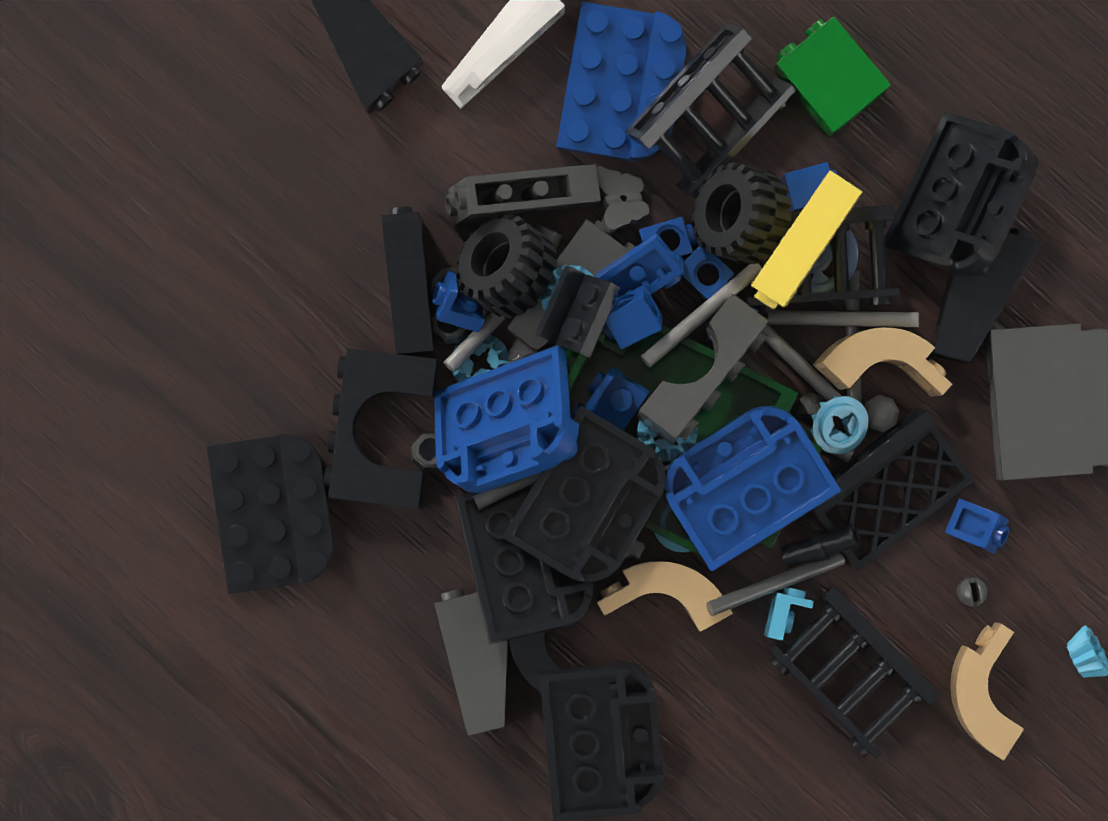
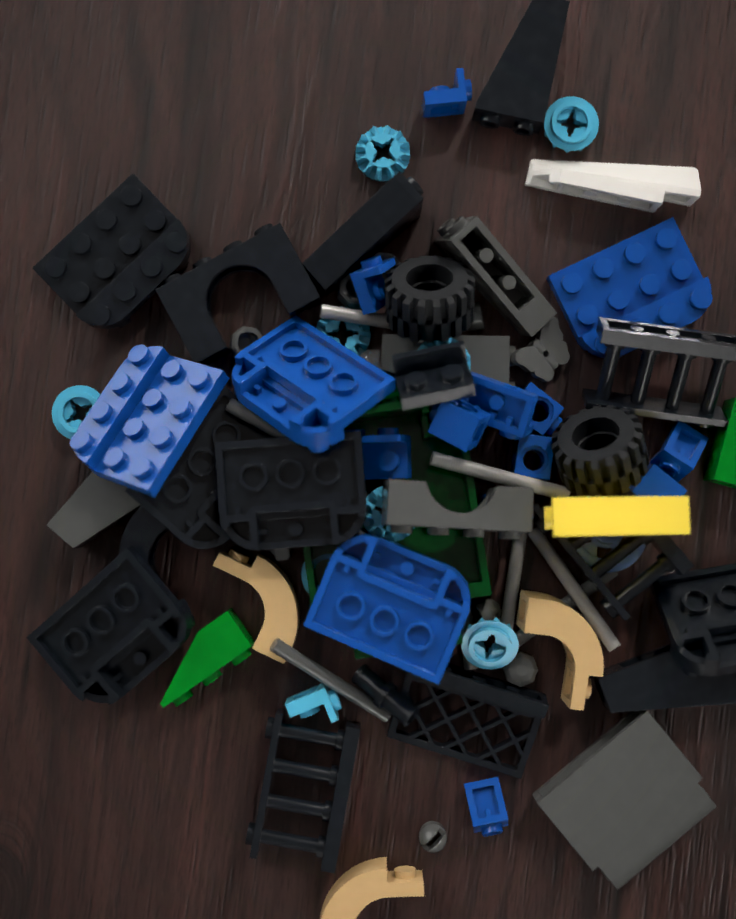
camera: 55 degrees right, 0 degrees up
(337, 129) = (446, 101): none -> blue bracket
(359, 223) = (384, 168): none -> medium azure gear
(374, 654) = (64, 409): none -> medium azure gear
(436, 14) = (583, 115): none -> medium azure gear
(437, 581) = (146, 418): none -> plate
(676, 667) = (211, 649): none -> green slope
(790, 142) = (680, 451): none -> blue bracket

